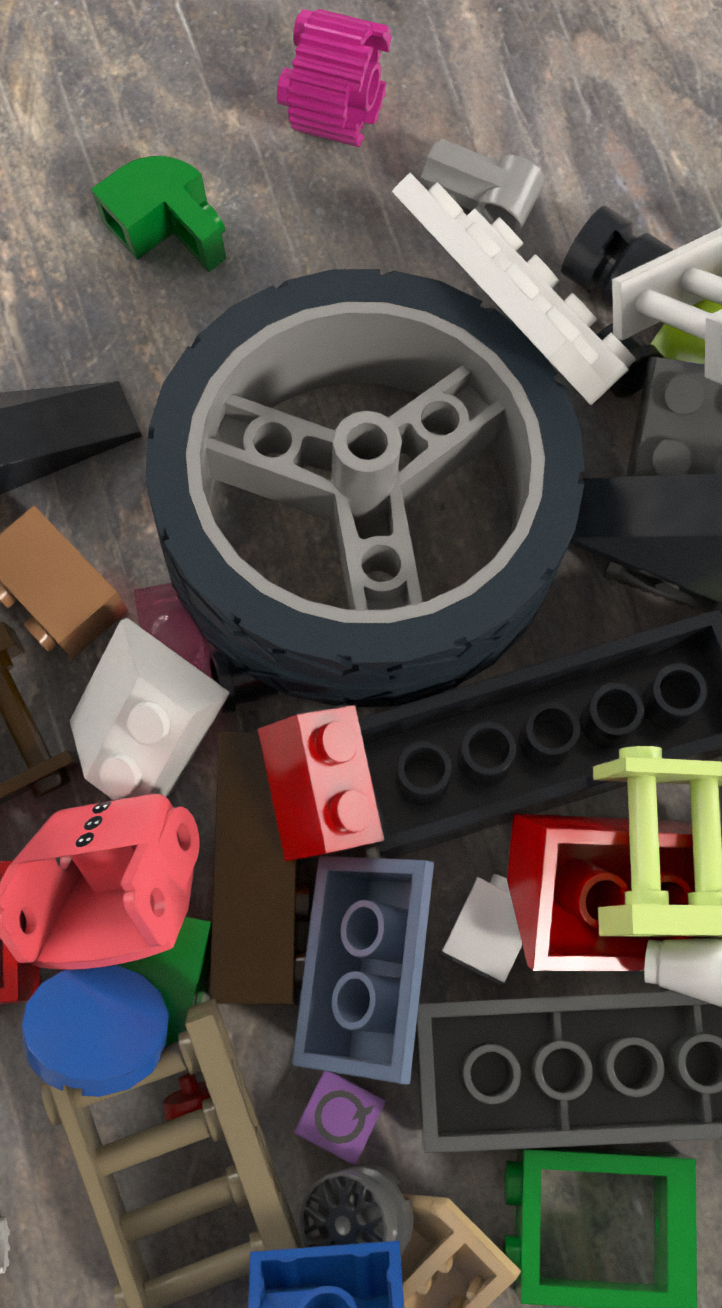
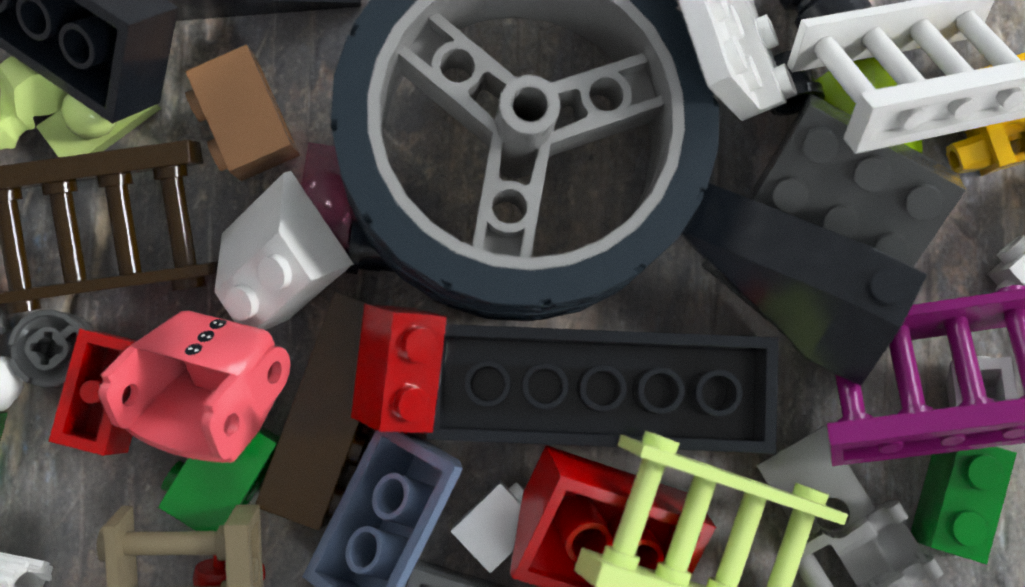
camera: 15 degrees right, 10 degrees up
(95, 1029) = (153, 502): blue tile -> none

